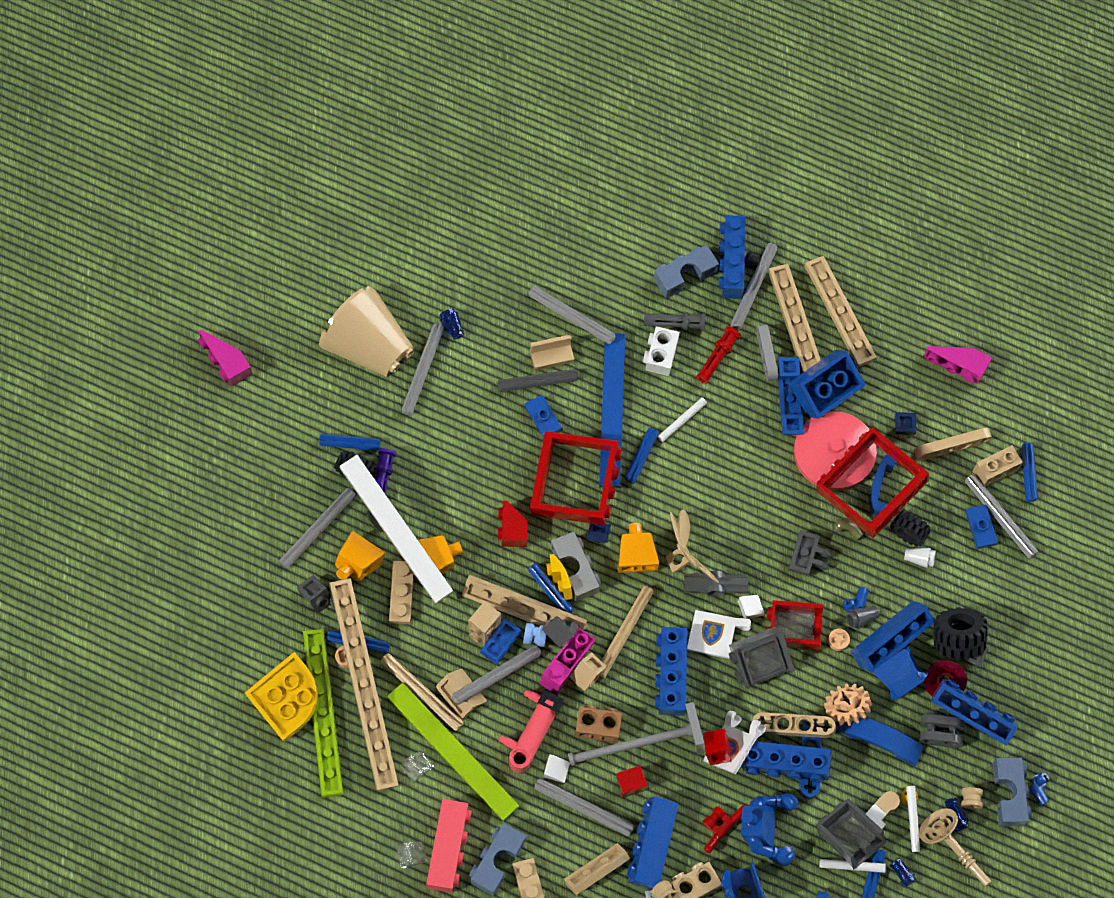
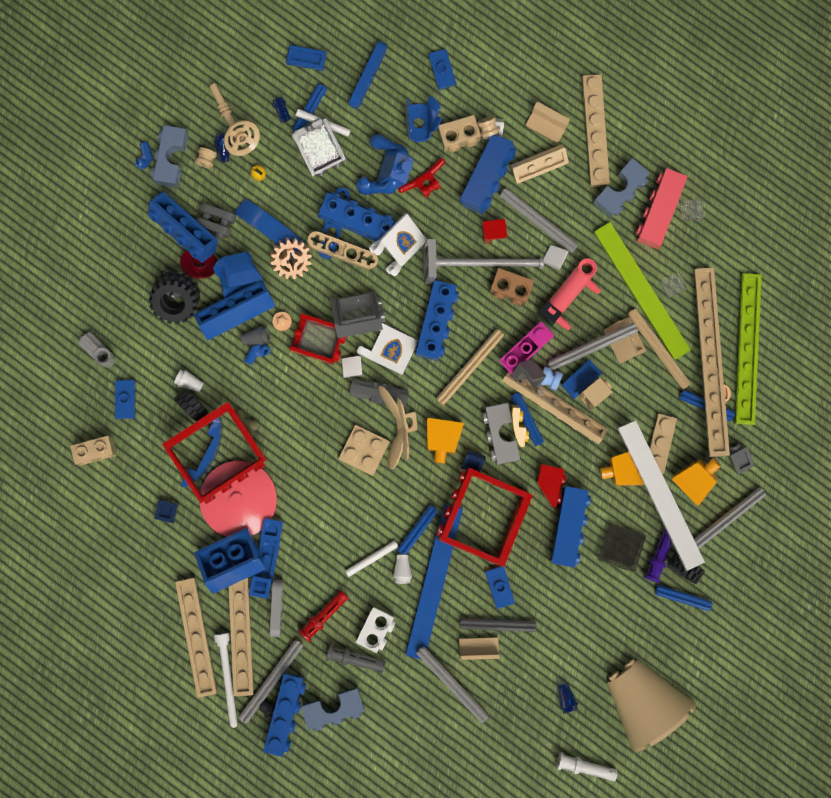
camera: 165 degrees left, 15 degrees up
(229, 359) = (783, 700): dark pink slope -> none
(286, 696) = (779, 365): yellow plate -> none
(422, 369) = (603, 658): light grey axle -> none
(423, 478) = (622, 547): none -> clear smoke plate
(430, 264) = (577, 765): none -> white pin
(484, 485) = (569, 527): none -> blue brick
(588, 671) = (511, 333): tan brick -> none
(647, 412) = (402, 570): none -> white cone
(716, 524) = (364, 450): none -> tan plate
(717, 747) = (415, 240): red panel -> none
(804, 554) = (291, 406): dark grey hinge -> none
(814, 313) = (222, 642): none -> white piece
(885, 805) = (286, 164): leg -> none
(913, 818) = (260, 150): white bar -> none
(952, 444) = (124, 482): tan beam -> none
(962, 361) = (91, 559): dark pink slope -> none
(1001, 516) = (104, 406): light grey axle -> none
(1028, 569) = (96, 350): none -> light grey piece
(1029, 472) = (65, 442): blue axle -> none

